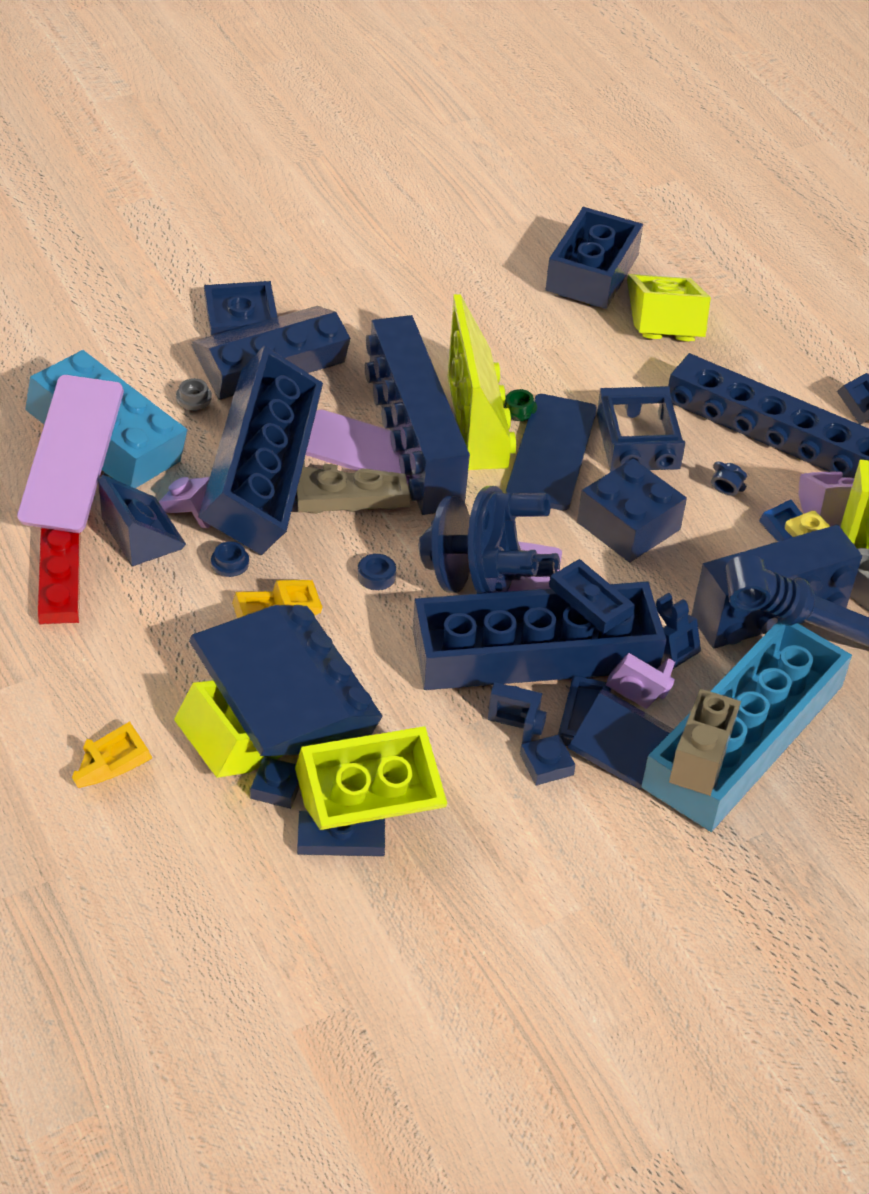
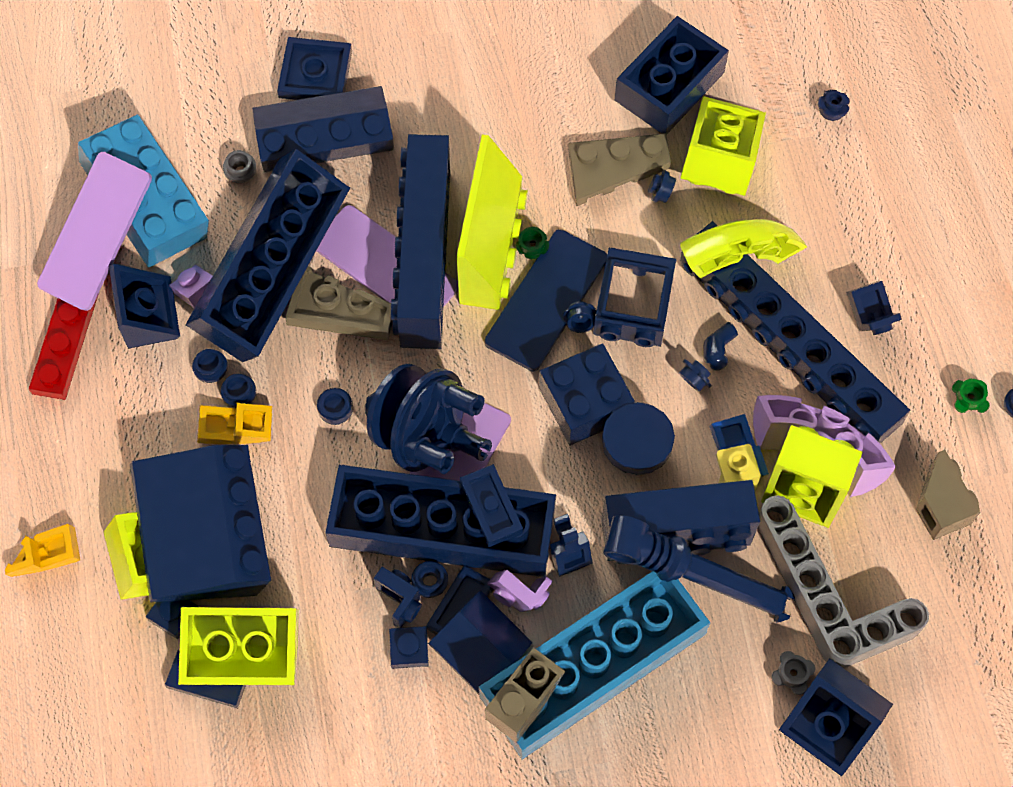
camera: 20 degrees right, 20 degrees up
(266, 573) = (238, 389): none -> dark blue plate
(552, 692) = (426, 569): none -> dark blue plate
(565, 336) = (608, 163): none -> dark tan wing
(600, 457) = (580, 317): none -> dark blue plate
(624, 343) = (661, 186): none -> dark blue plate
(701, 532) = (638, 438): none -> dark blue piece
(721, 358) = (730, 241): none -> neon yellow brick
(736, 452) = (715, 346): none -> dark blue arm
(750, 262) = (831, 111): none -> dark blue plate

